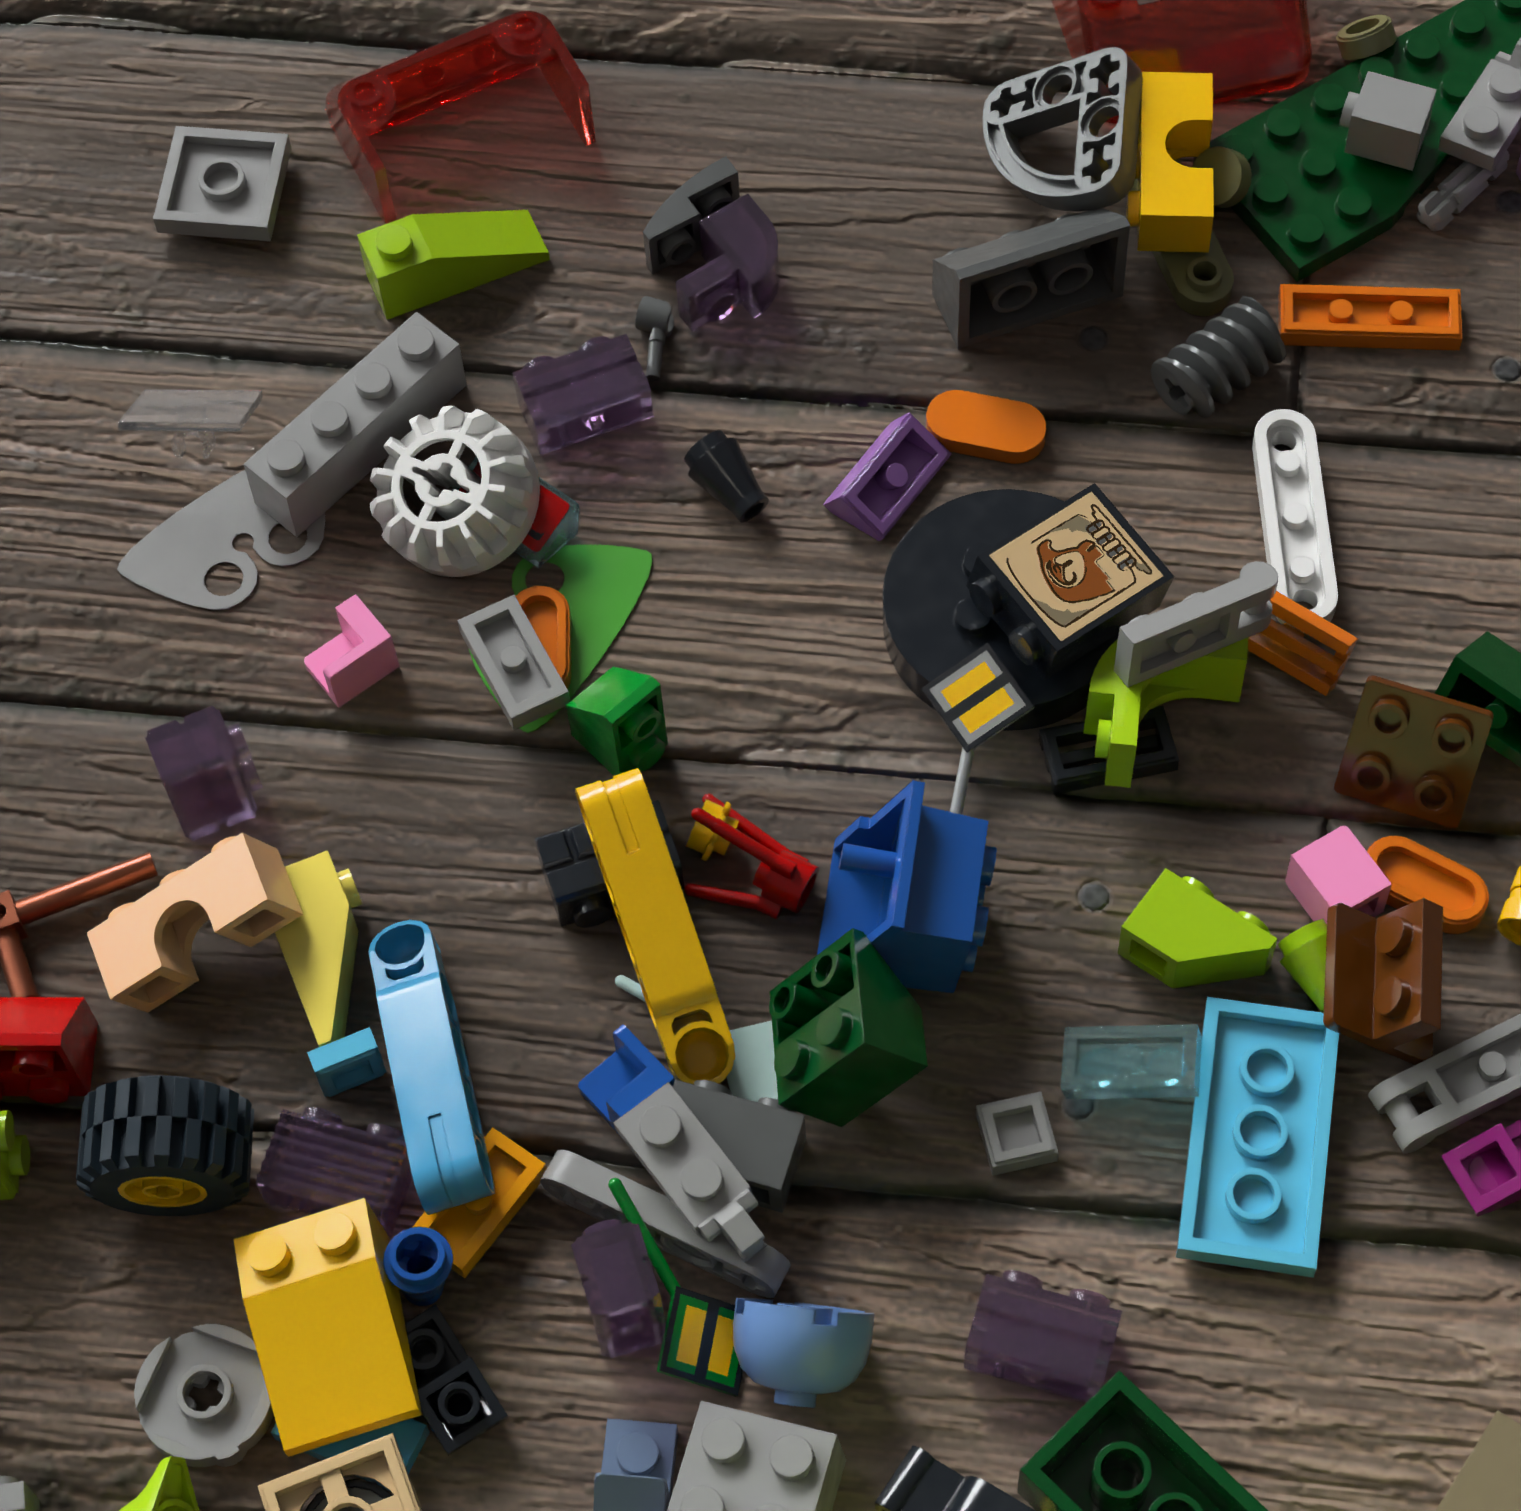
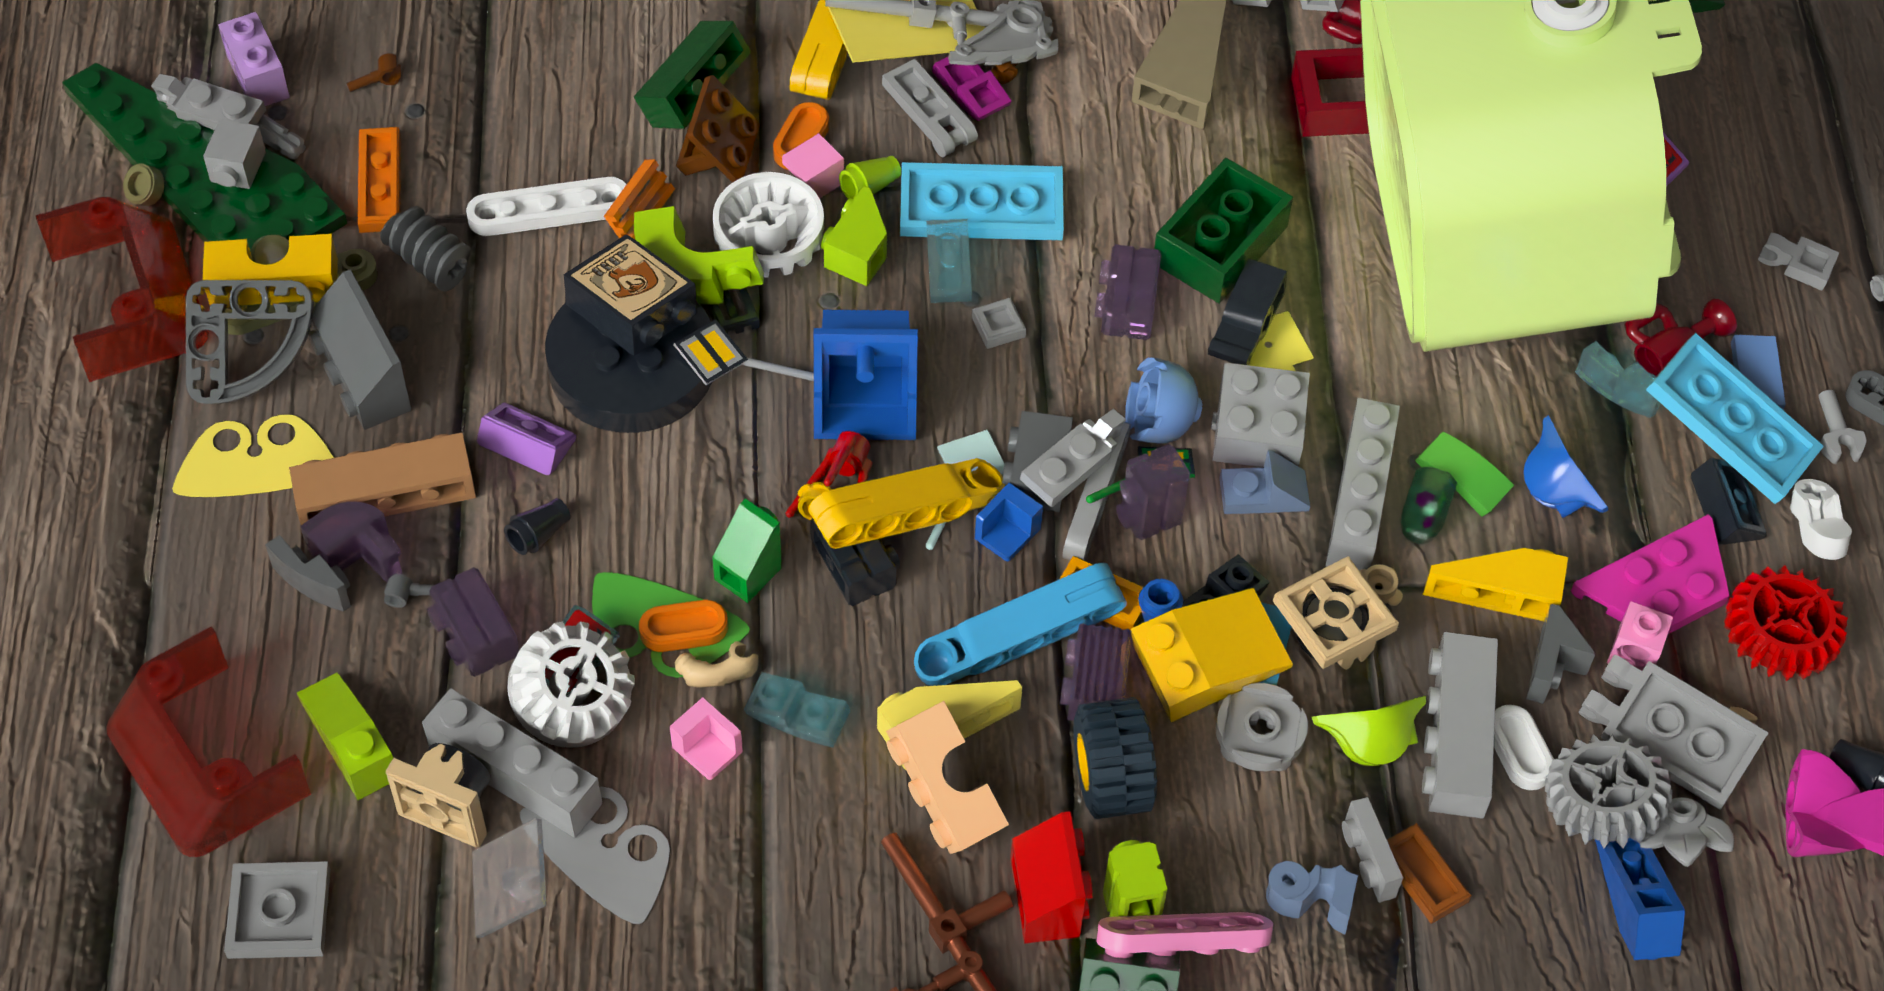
camera: 105 degrees left, 5 degrees down
(205, 771) = (828, 796): clear purple brick -> none
(314, 331) = (447, 792): none -> tan piece
(347, 1062) = (1018, 669): medium azure tile -> none
(381, 772) = (791, 709): none -> clear light blue slope
(457, 698) = (702, 674): none -> tan piece
(514, 662) = (712, 620): light grey plate -> none
(824, 300) = (389, 478): none -> medium nougat brick
(844, 1032) = (963, 392): dark green slope -> none
(880, 199) = (234, 472): none -> light yellow piece
(986, 426) = (481, 381): orange tile -> none
(1196, 625) = (658, 219): light grey plate -> none
(1235, 765) = (765, 214): none -> white gear
(1385, 977) = (880, 129): reddish brown bracket -> none

